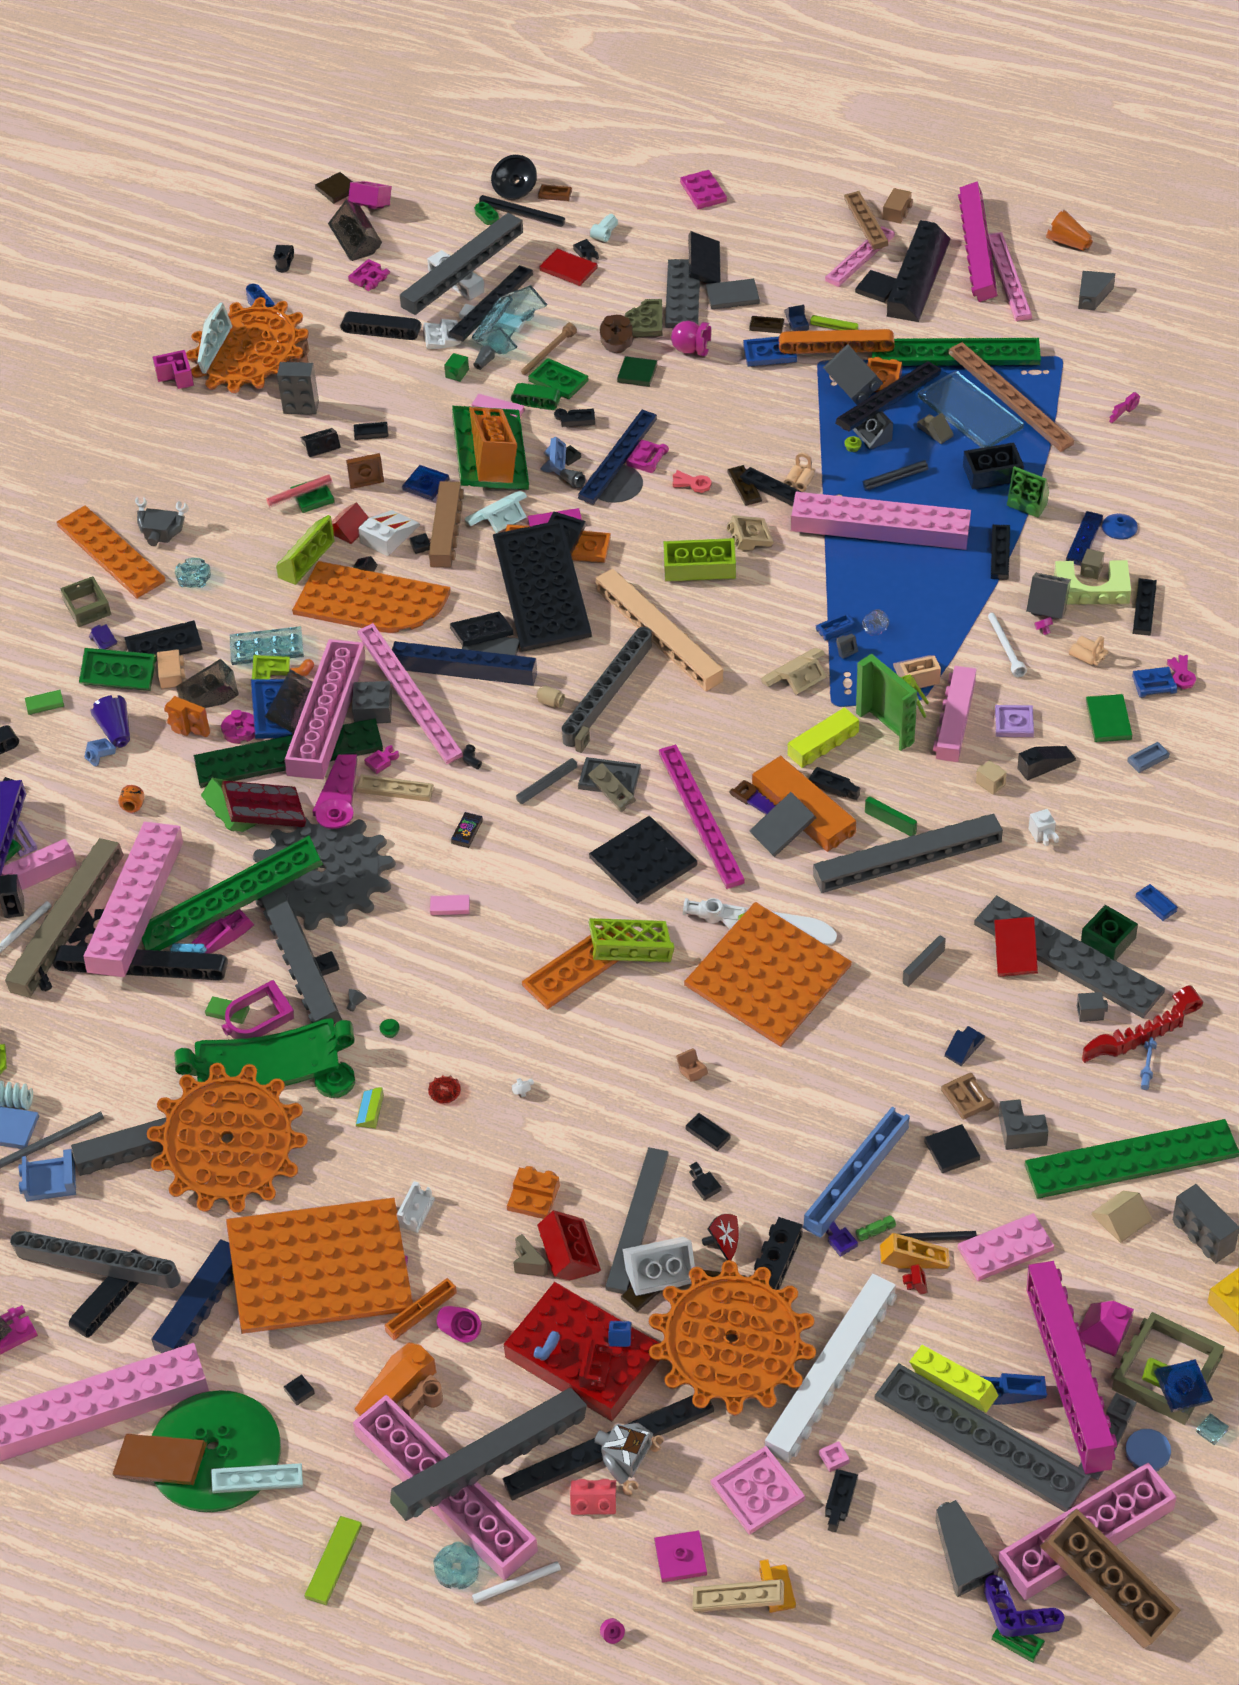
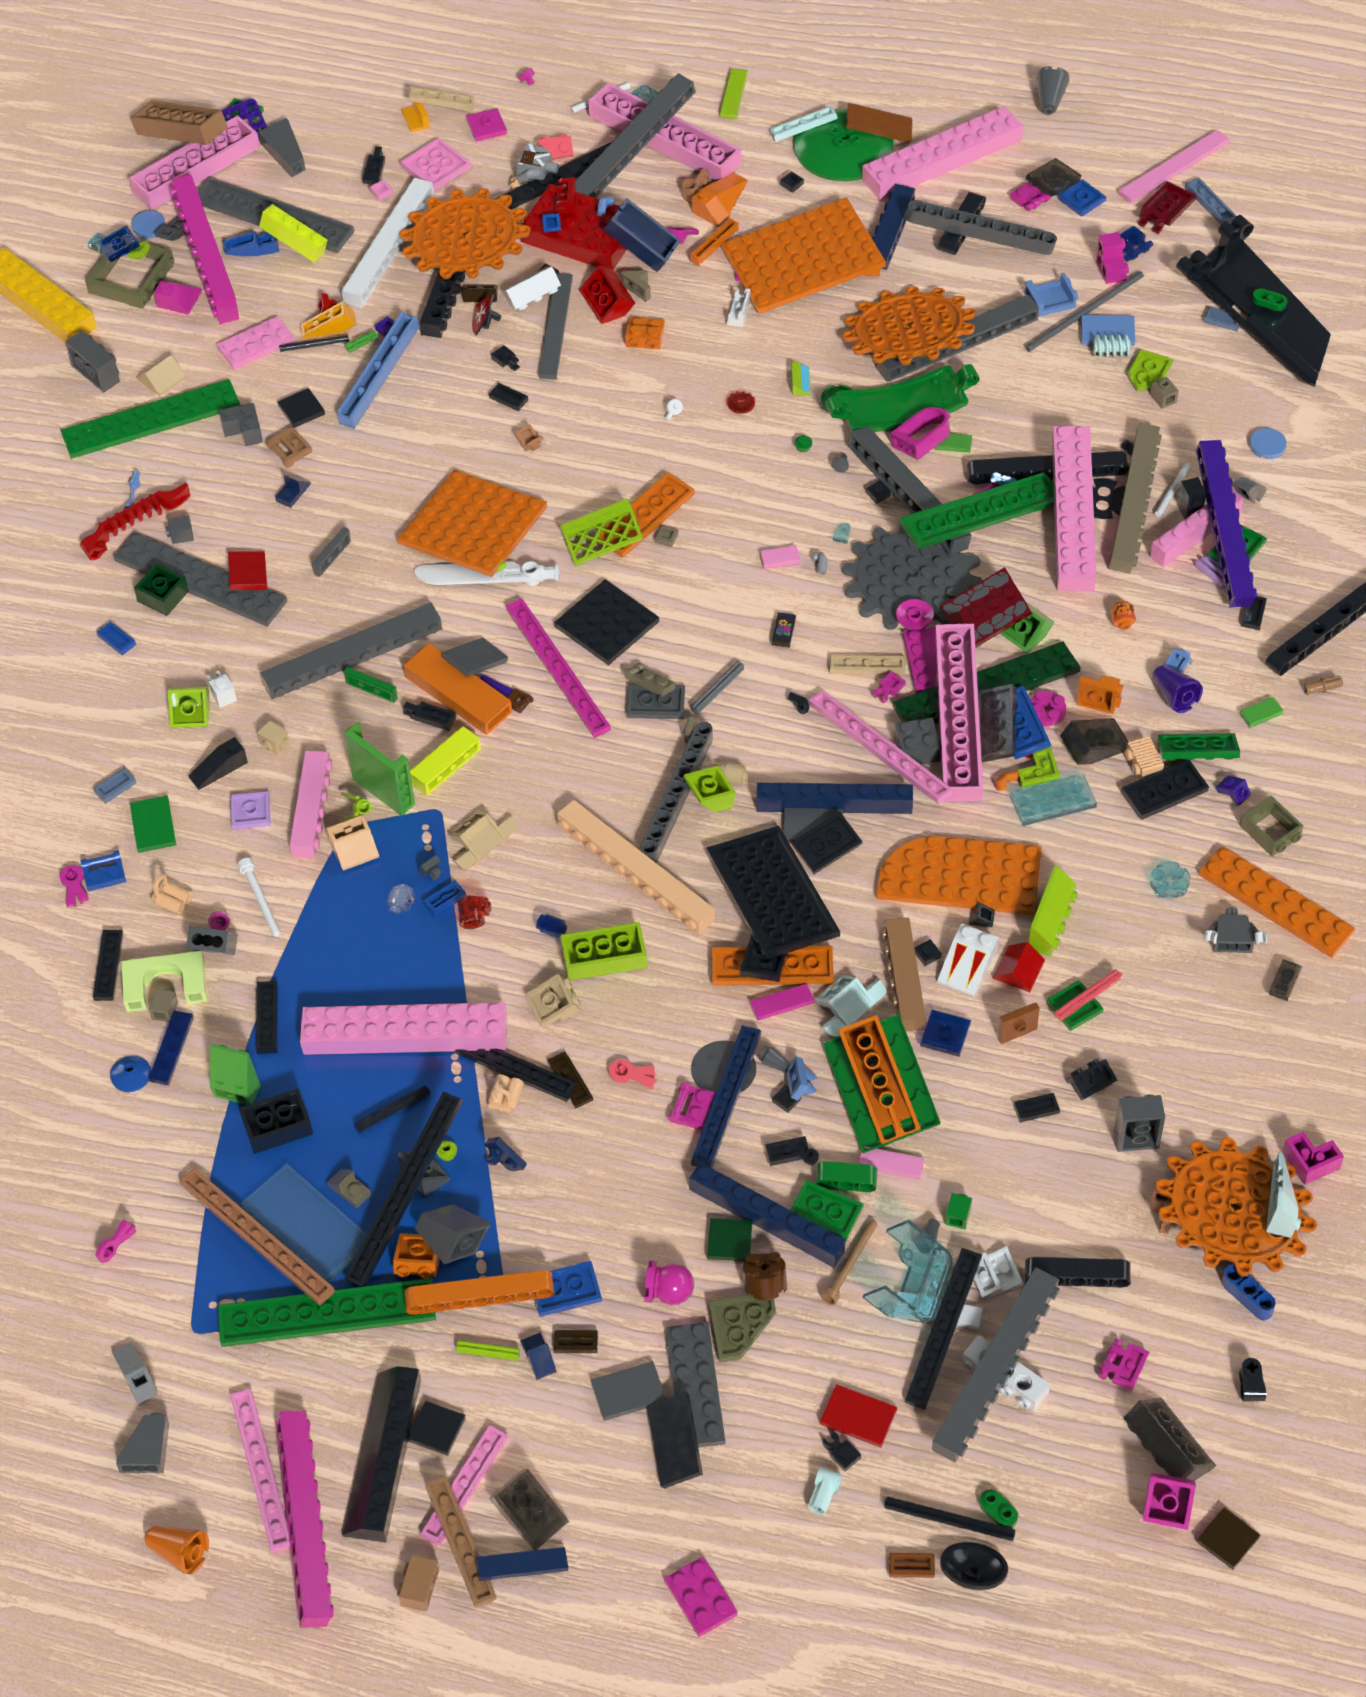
camera: 170 degrees right, 5 degrees up
(134, 489) = (1285, 980): none -> clear smoke plate
(378, 924) = (842, 533): none -> clear light blue piece
(408, 889) = (822, 561): none -> light grey arm
(511, 1296) = (642, 235): none -> dark blue piece
(562, 942) = (666, 536): none -> dark tan tile
(577, 673) = (711, 788): none -> lime slope
(606, 376) = (767, 1215): none -> dark blue brick
(742, 590) = (551, 925): none -> clear blue brick
(808, 425) = (502, 1153): none -> dark blue hinge
(811, 602) = (473, 911): none -> clear red piece
(817, 236) = (529, 1509): none -> clear smoke slope
(824, 207) = (521, 1564): none -> dark blue tile
(1076, 818) = (189, 706): none -> lime slope
(1104, 326) = (135, 1373): none -> light grey slope

